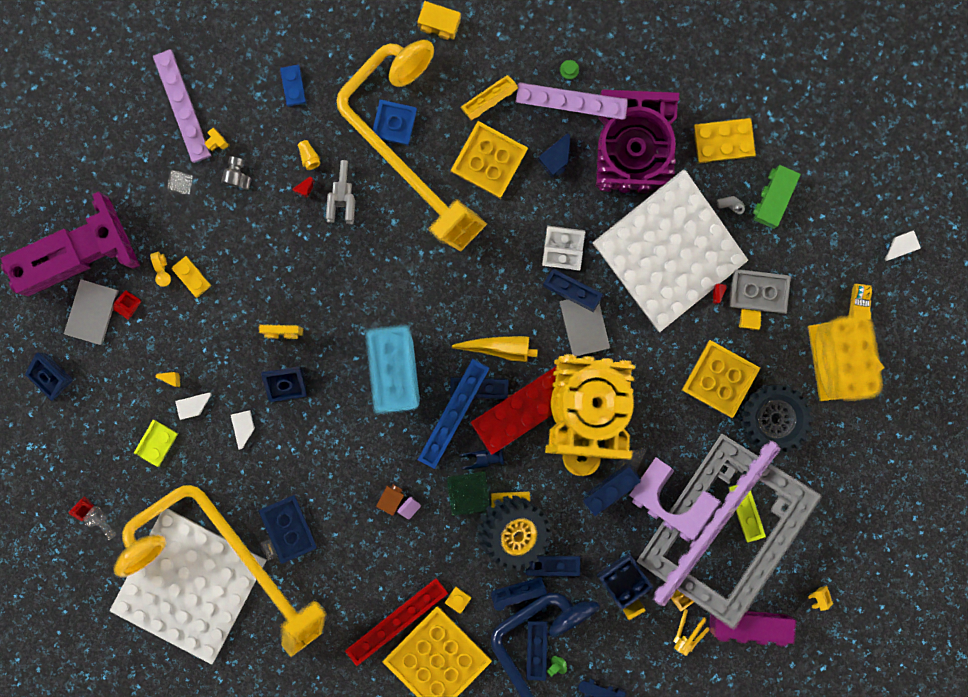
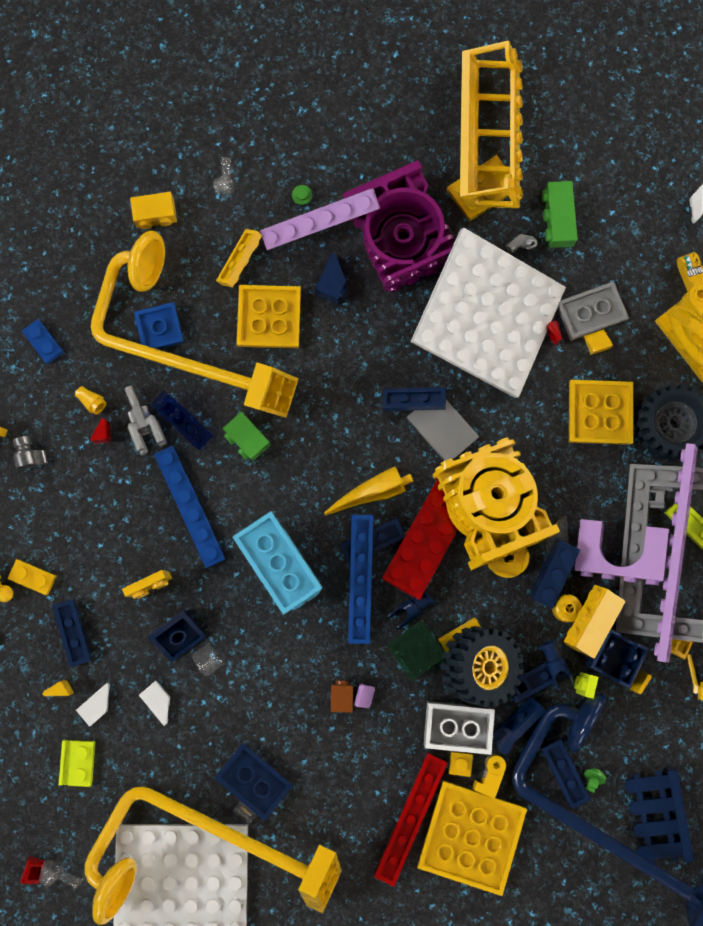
camera: 25 degrees left, 5 degrees down
(202, 338) = (72, 633): none -> dark blue plate
(298, 415) = (207, 660): none -> clear slope
(345, 284) = (189, 507): none -> blue plate
(373, 209) = (181, 420): none -> clear blue slope
(420, 251) = (246, 436): none -> bright green brick
(471, 571) = (459, 727): none -> white brick
(477, 622) = (492, 776): none -> yellow leg
(510, 26) = (224, 183): none -> clear bar
(563, 248) = (384, 364): white slope -> none
(575, 559) = (556, 661): none -> dark blue piece
(589, 589) = (586, 685): none -> neon yellow plate
(602, 517) = (560, 607): none -> yellow head
(621, 543) = (594, 621): none -> yellow slope
(738, 88) = (469, 128): none -> yellow window

